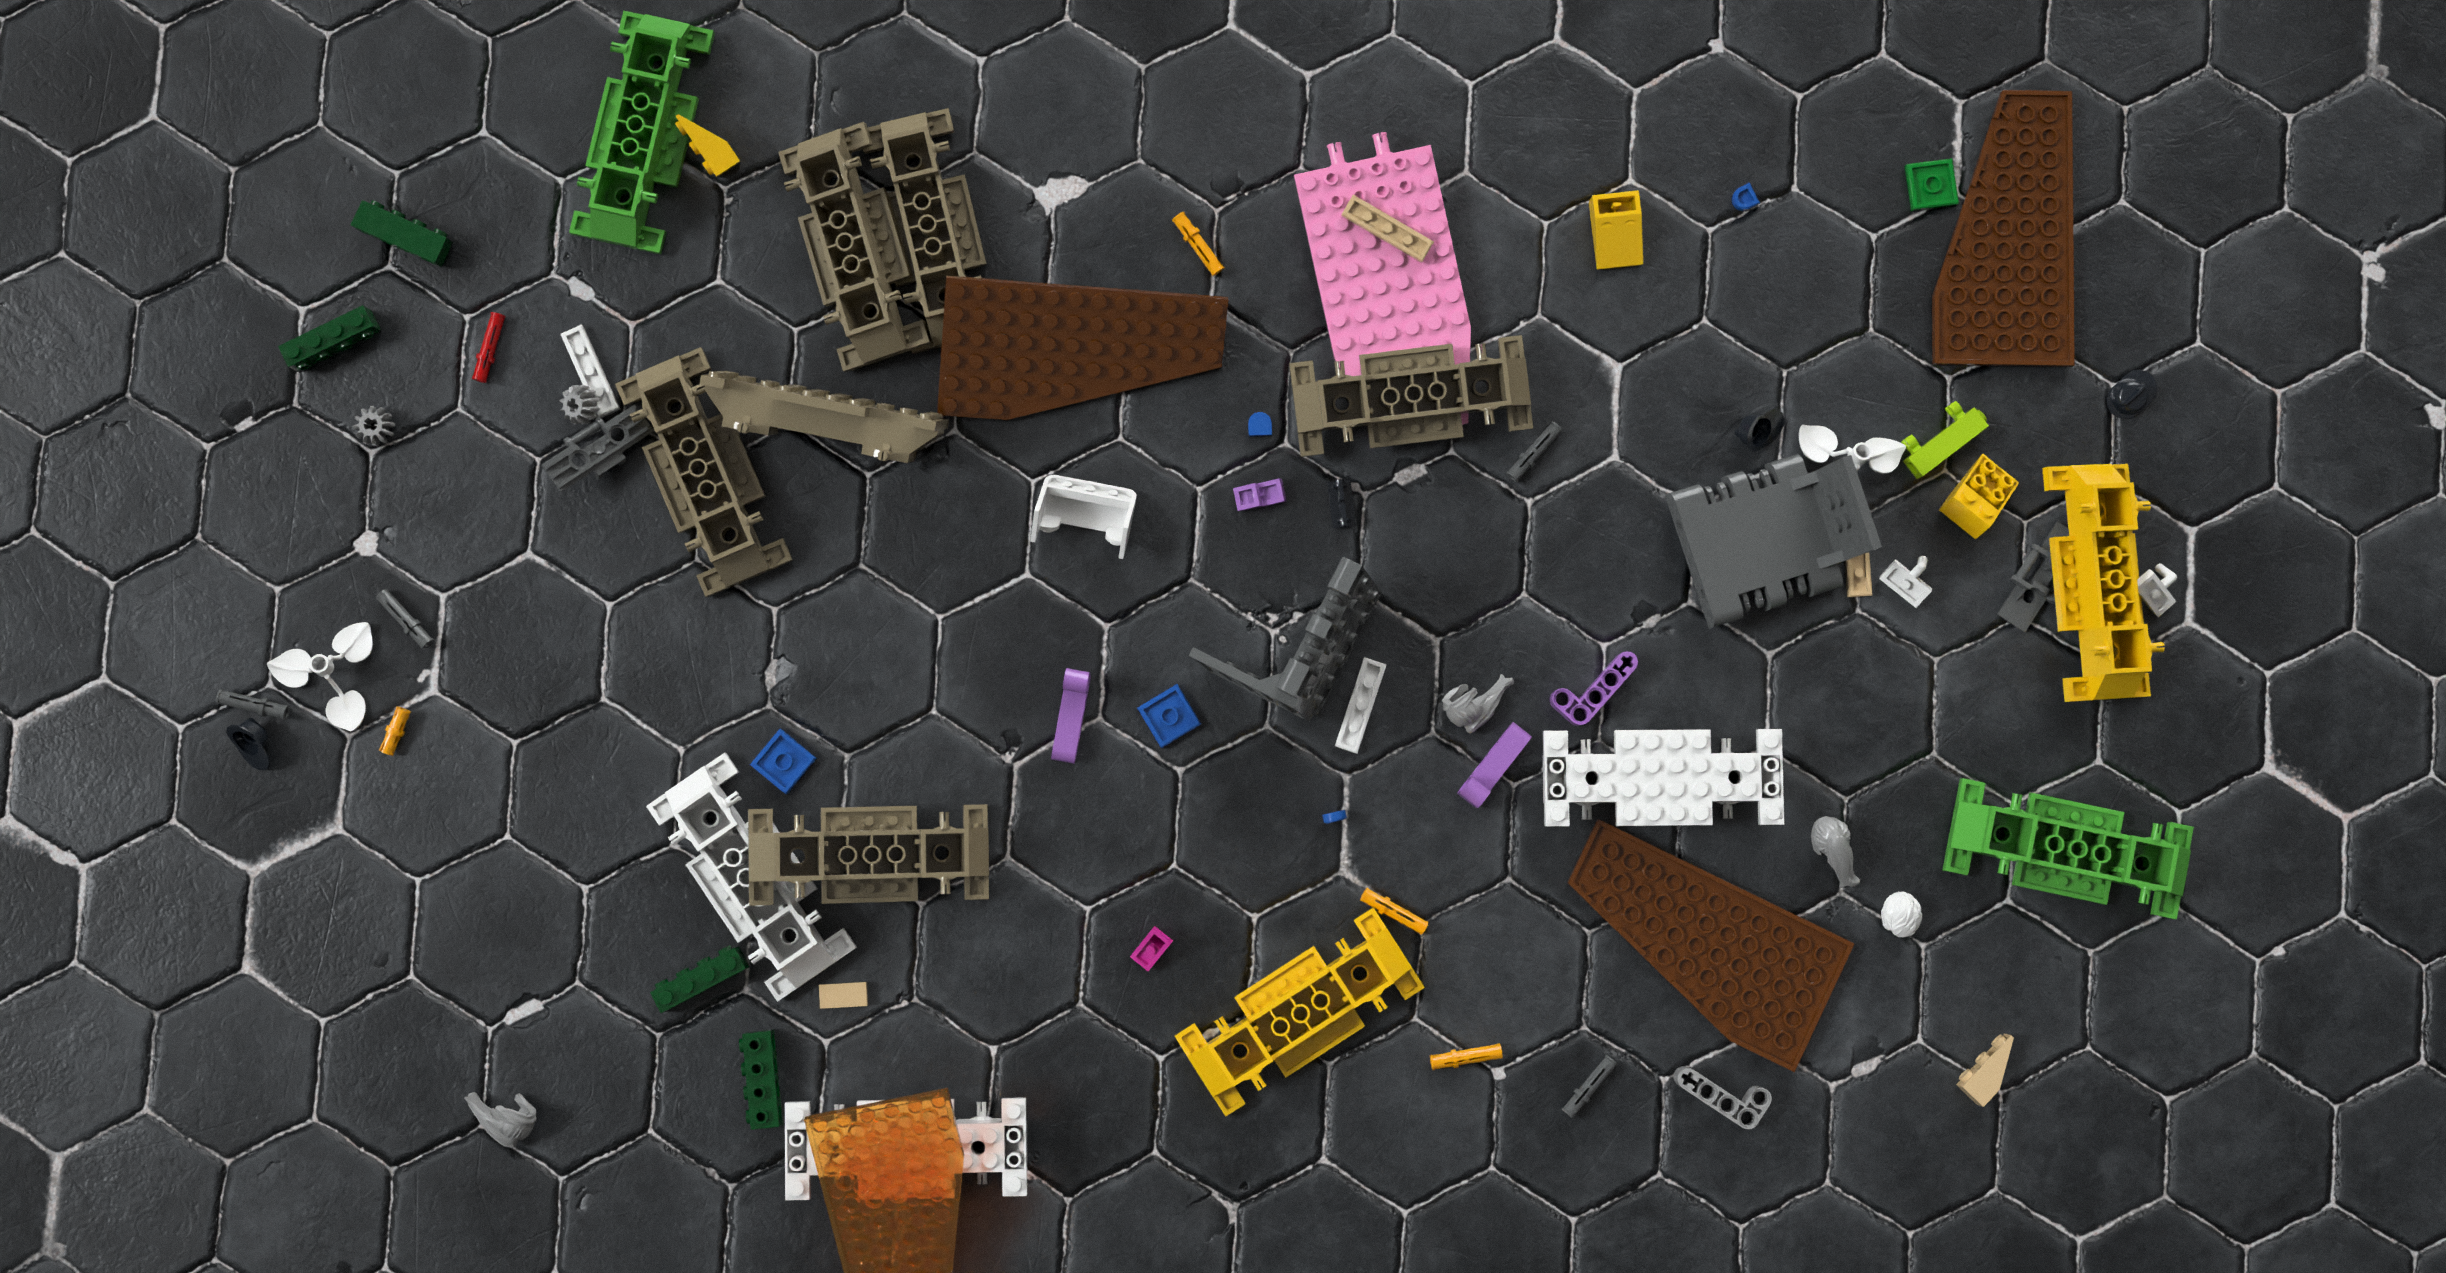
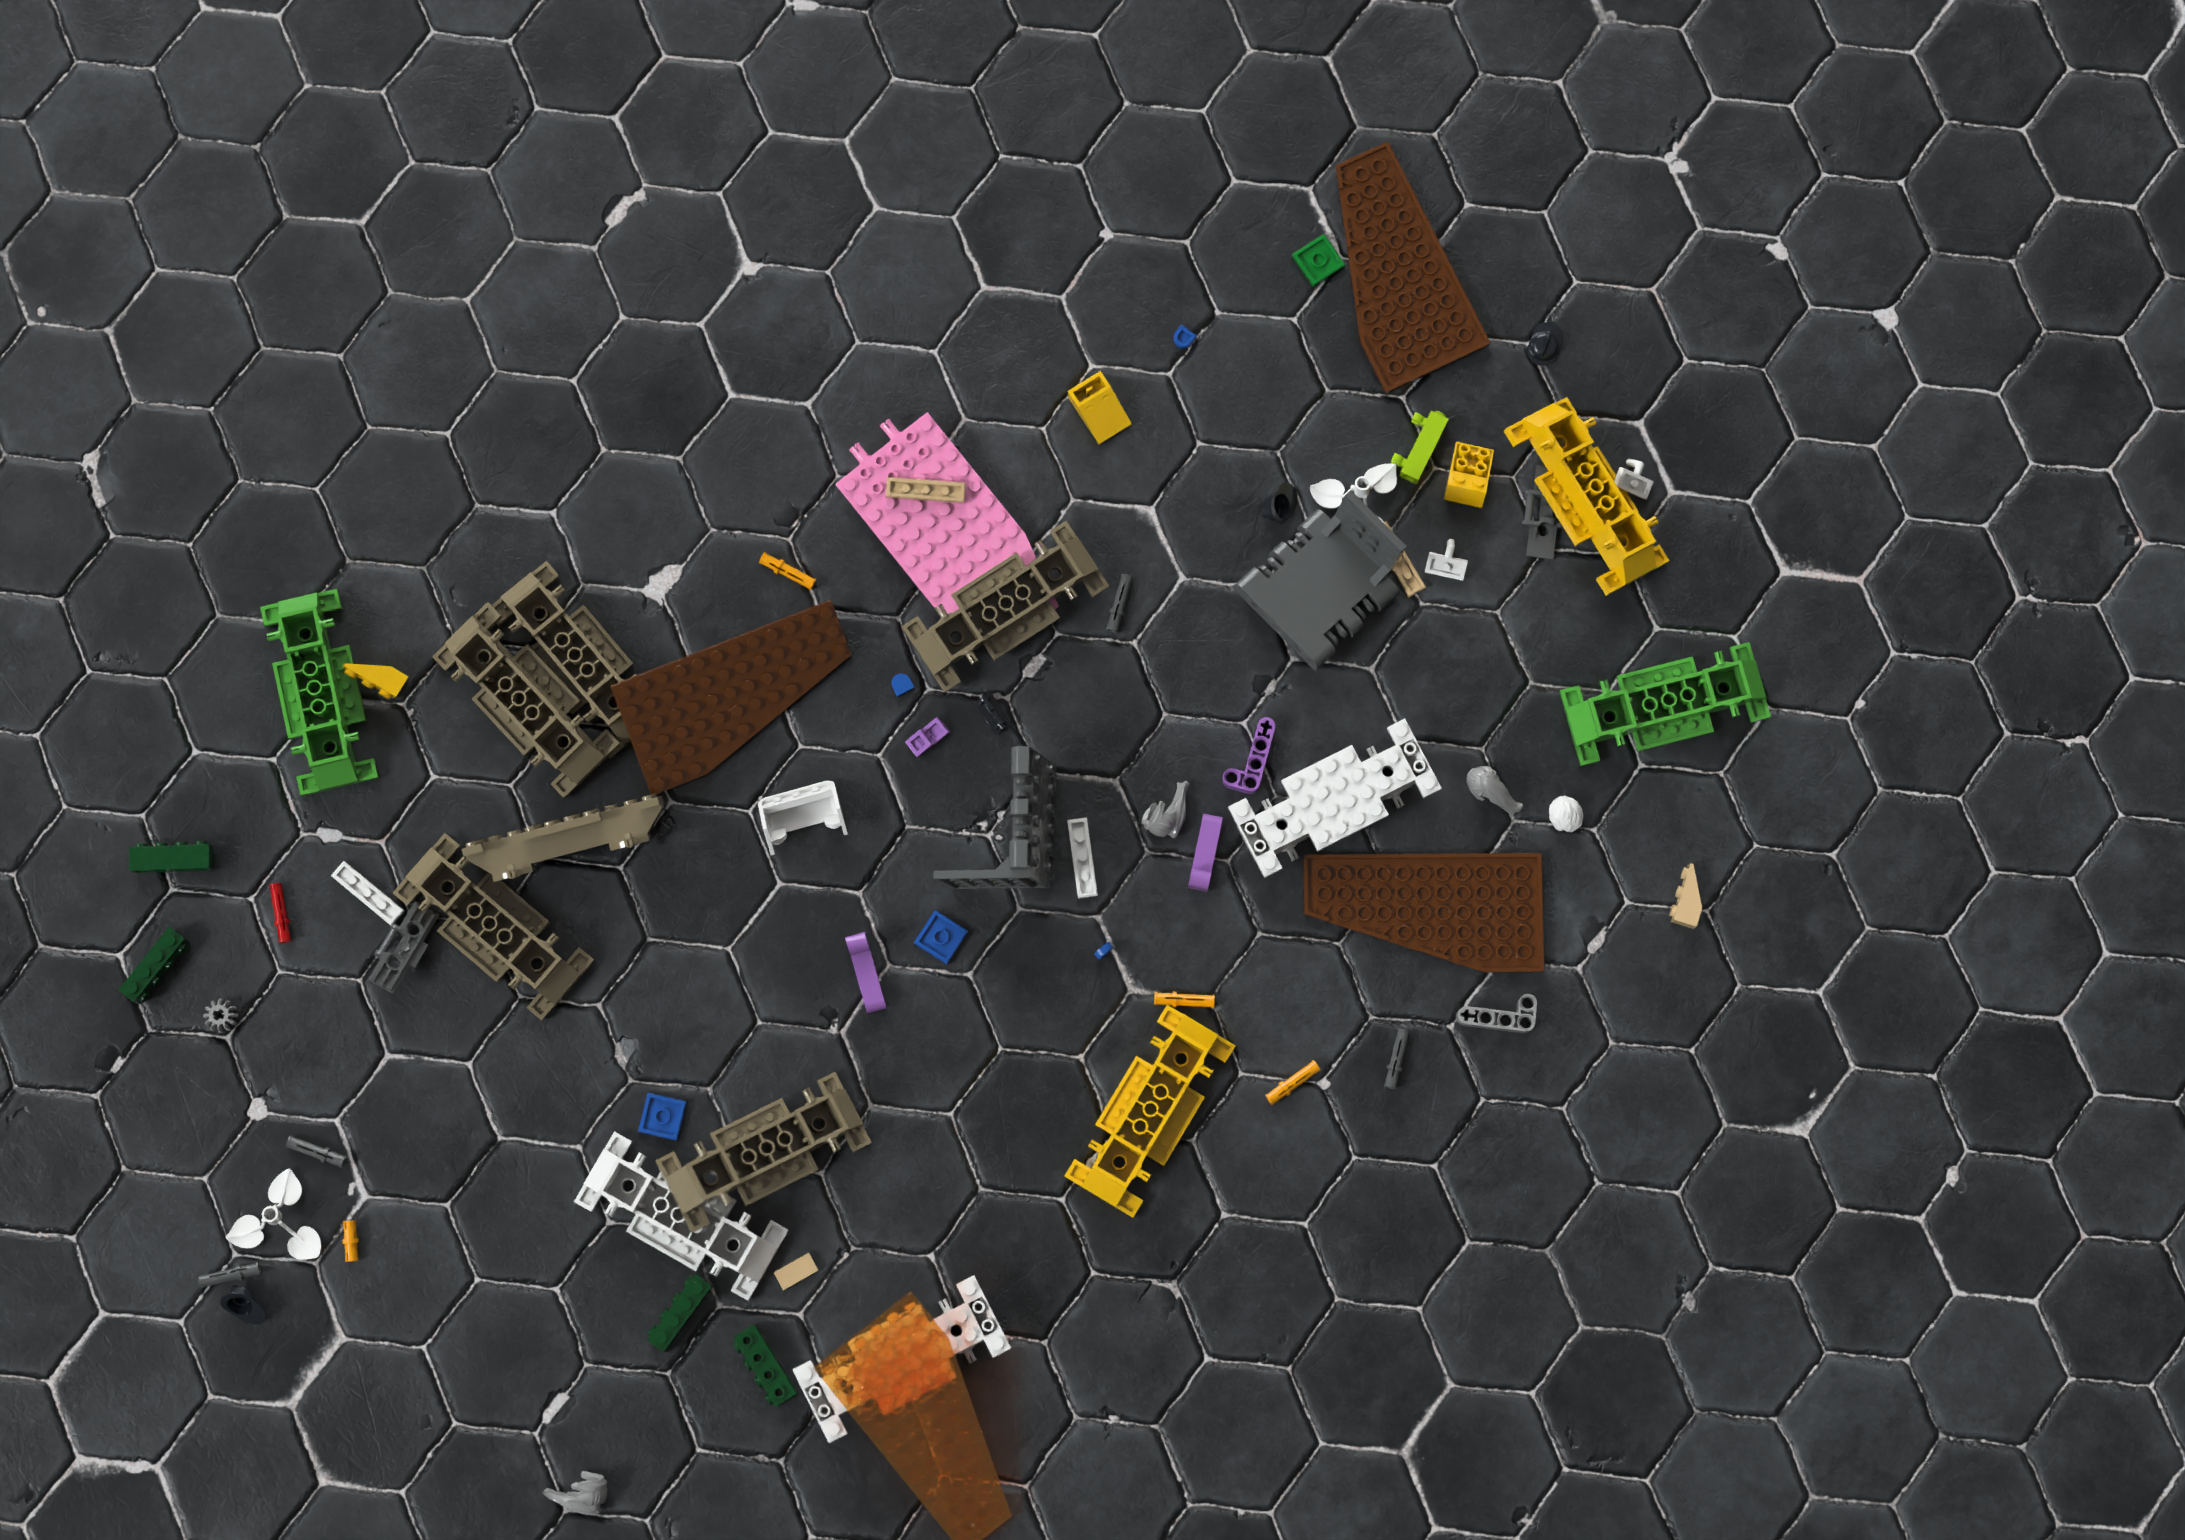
camera: 25 degrees left, 5 degrees down
(579, 404) = (373, 921): light grey gear -> none
(1151, 948) = (1014, 1118): dark pink slope -> none

